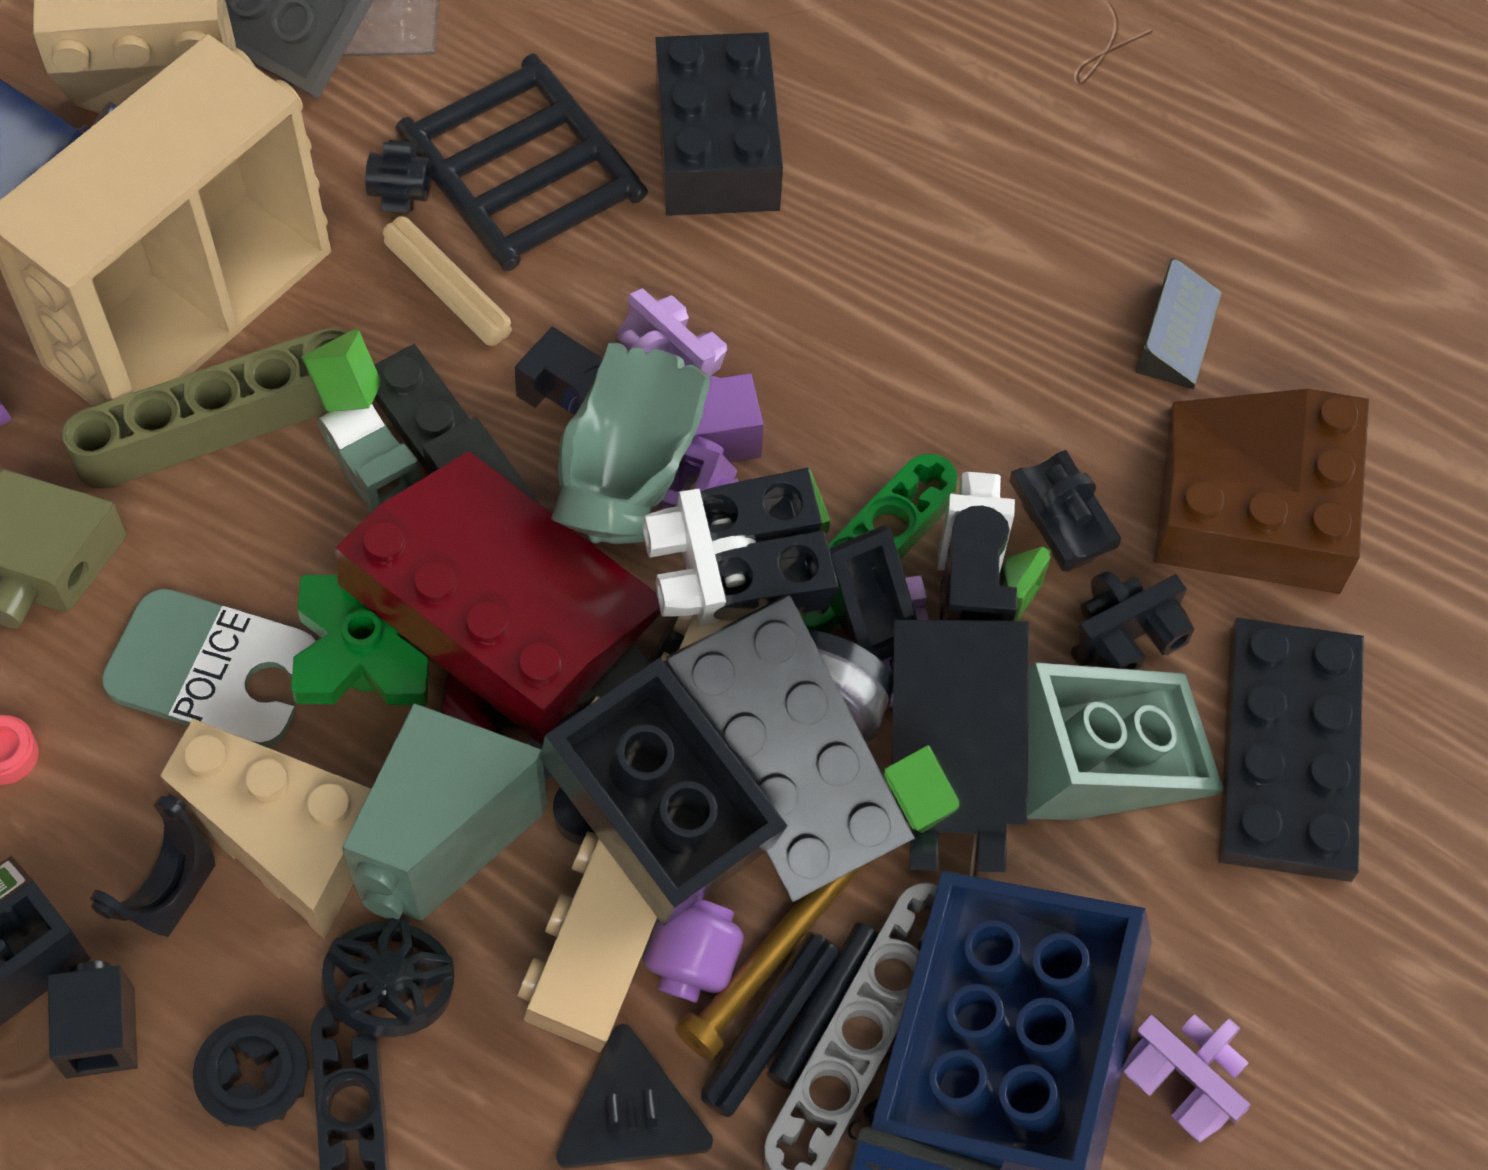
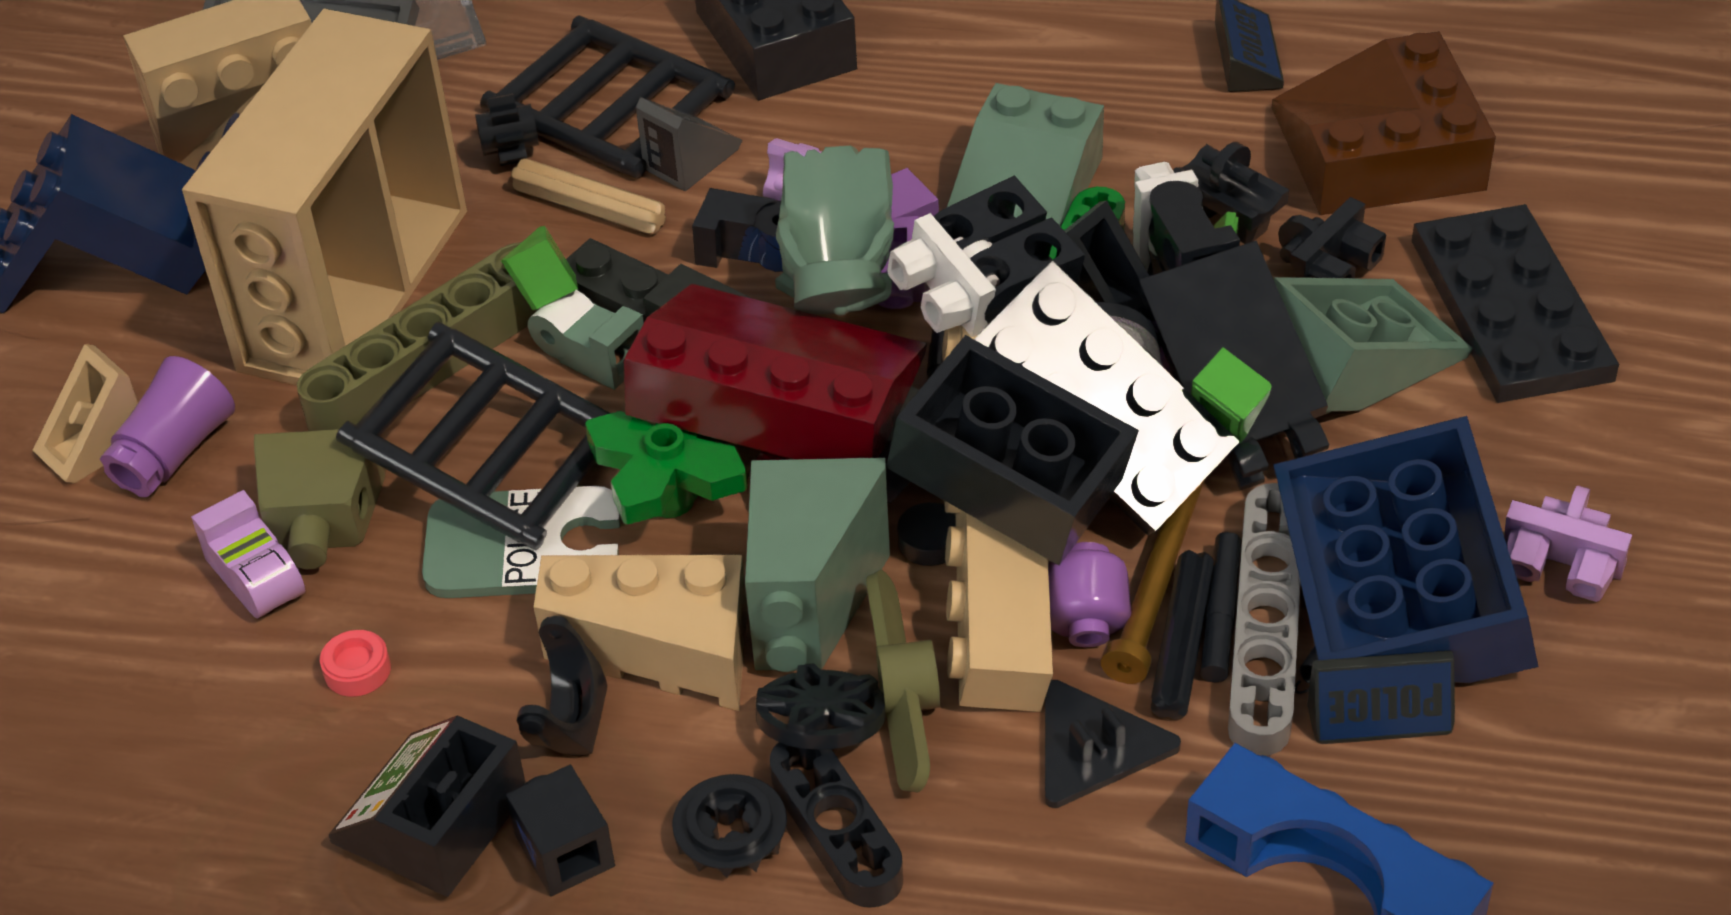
camera: 15 degrees left, 15 degrees down
(132, 563) = (474, 495): none -> black bar
(480, 972) = (907, 680): none -> olive piece
(563, 250) = (681, 145): none -> dark grey slope
(873, 410) = (1040, 139): none -> sand green slope

